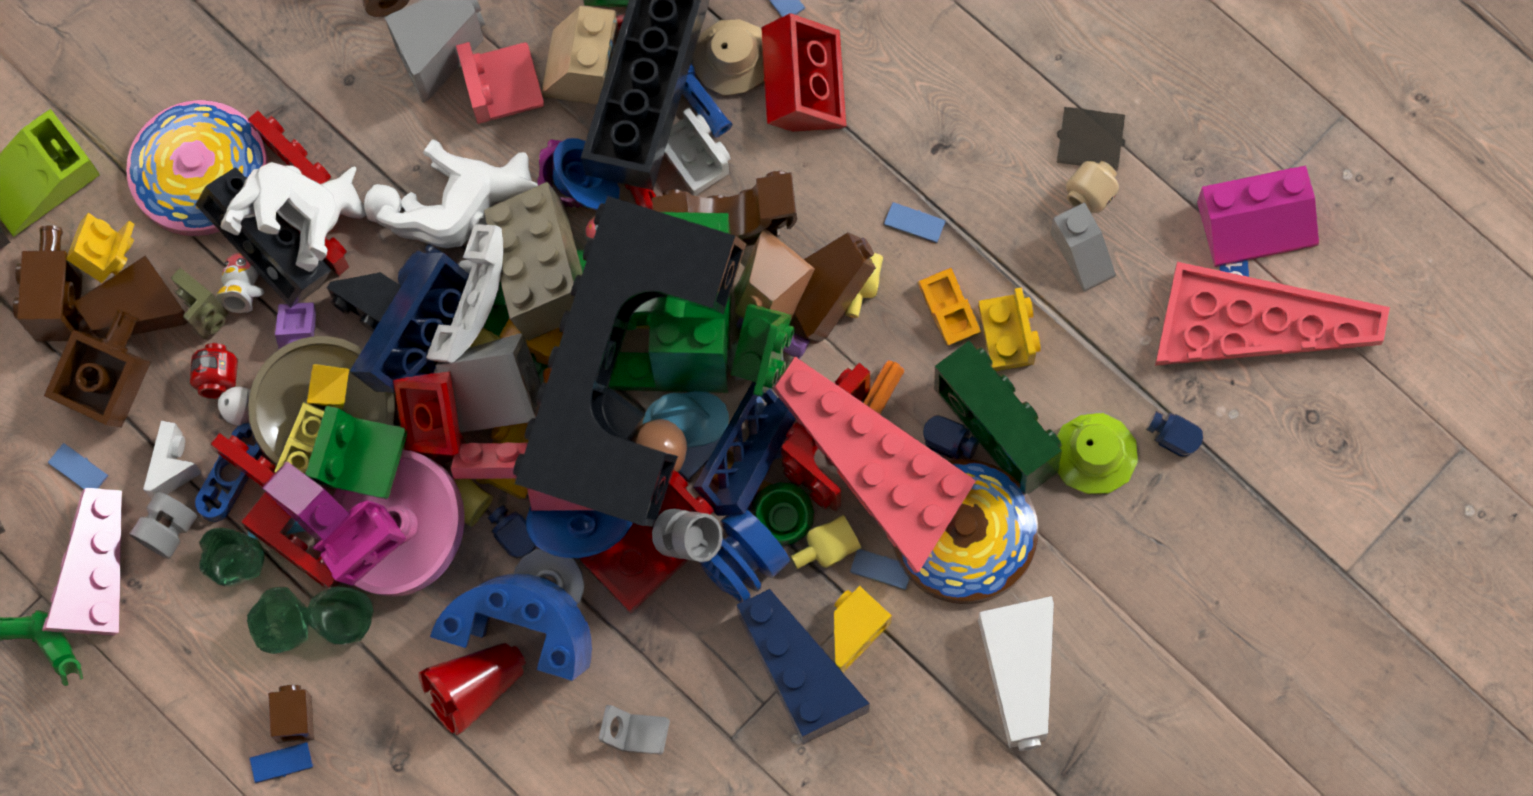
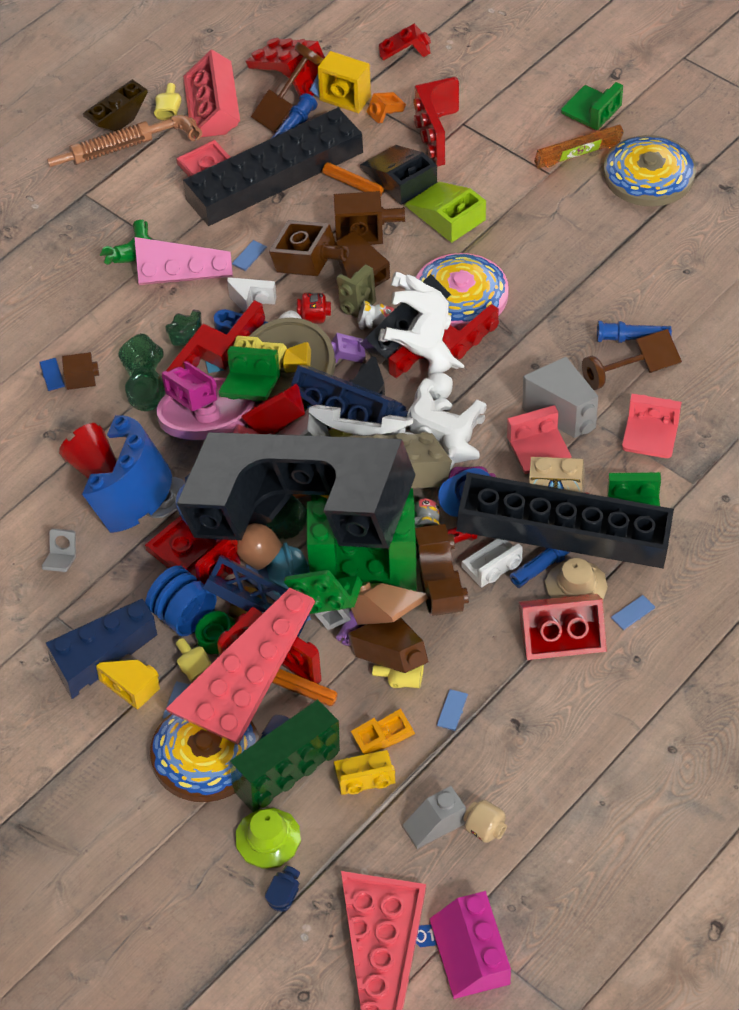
camera: 85 degrees right, 20 degrees down
(99, 248) = (393, 236): yellow bracket -> none
(157, 536) = (205, 293): light grey wheel -> none
(305, 501) = (212, 350): magenta slope -> none
(687, 535) = (183, 551): light grey wheel -> none
(1019, 661) = (95, 787): white slope -> none
(1090, 137) = (532, 827): clear smoke piece -> none

